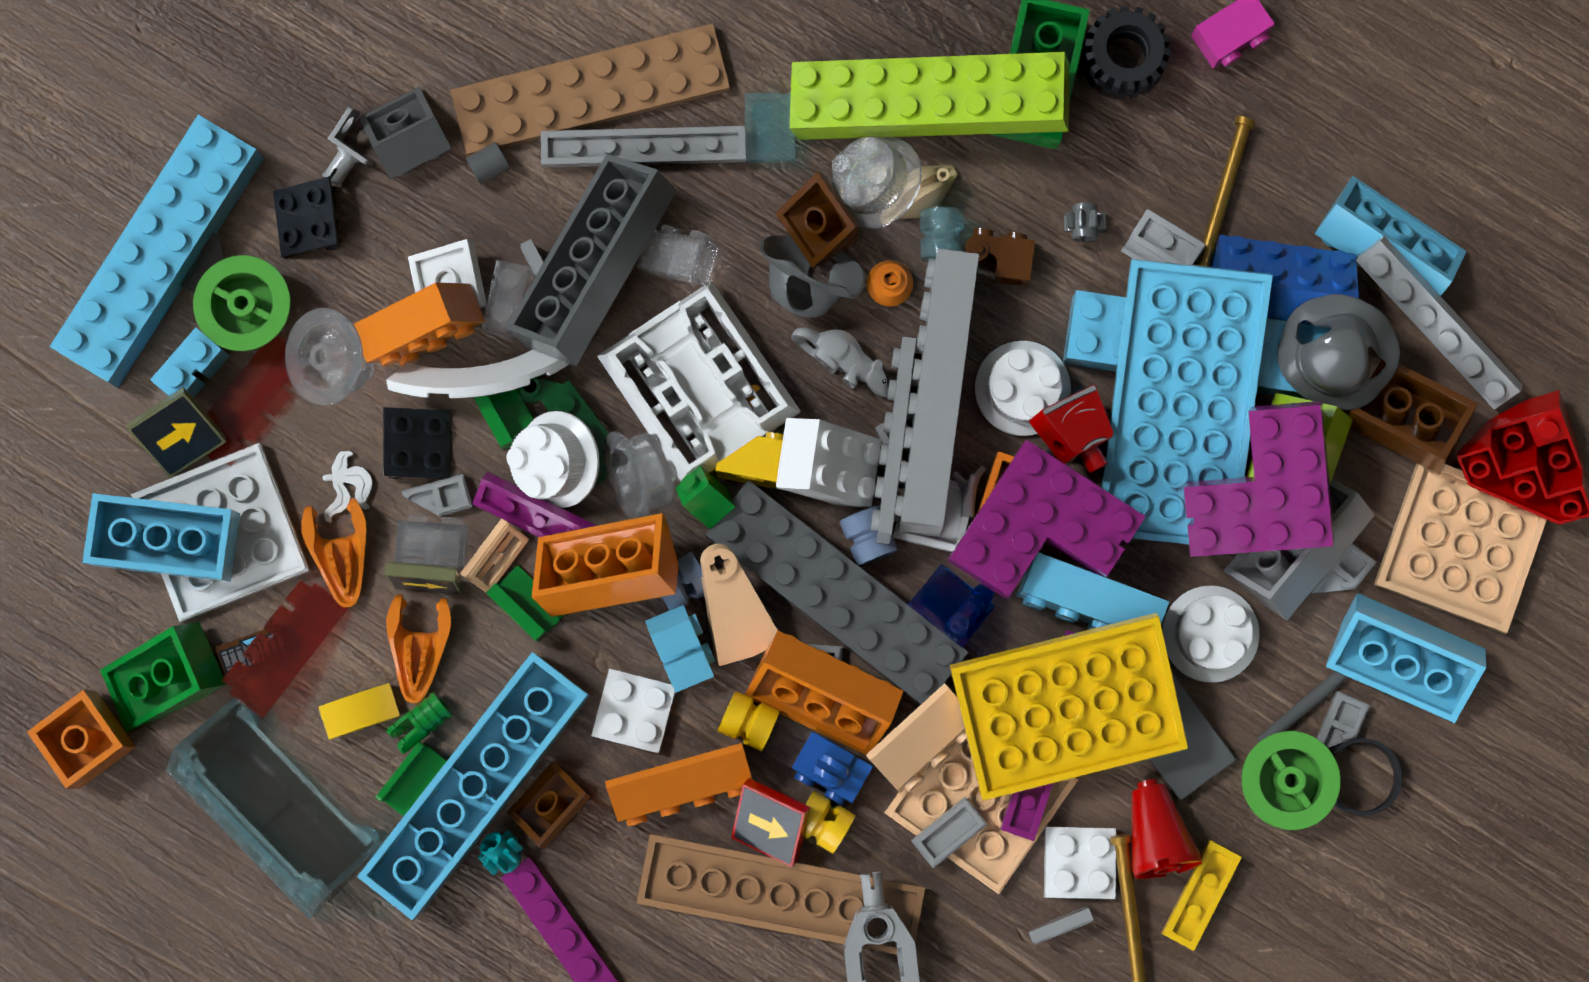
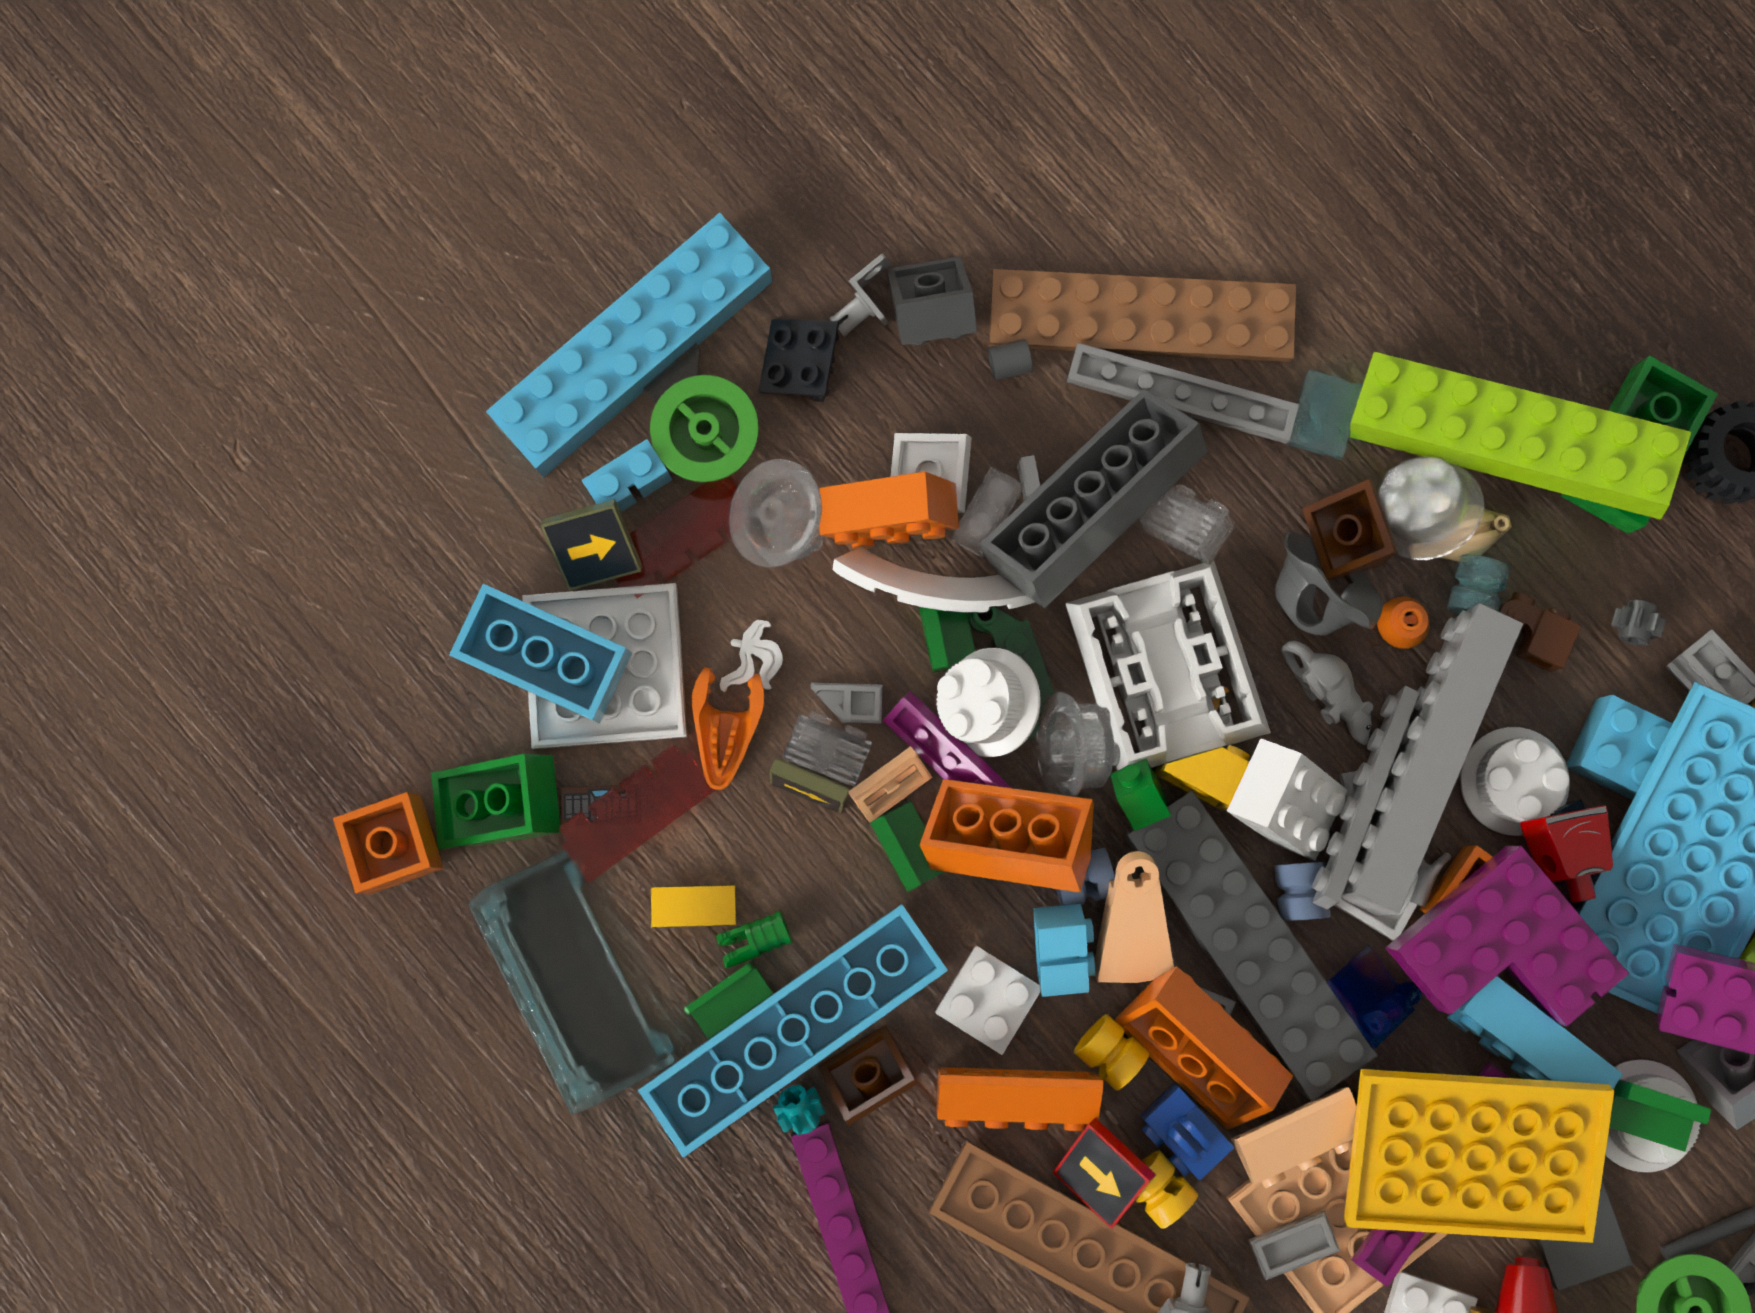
camera: 20 degrees right, 0 degrees up
(416, 443) = (842, 636): black hinge -> none
(416, 653) = (774, 862): orange animal -> none
(1207, 627) = (1655, 1115): none -> green panel

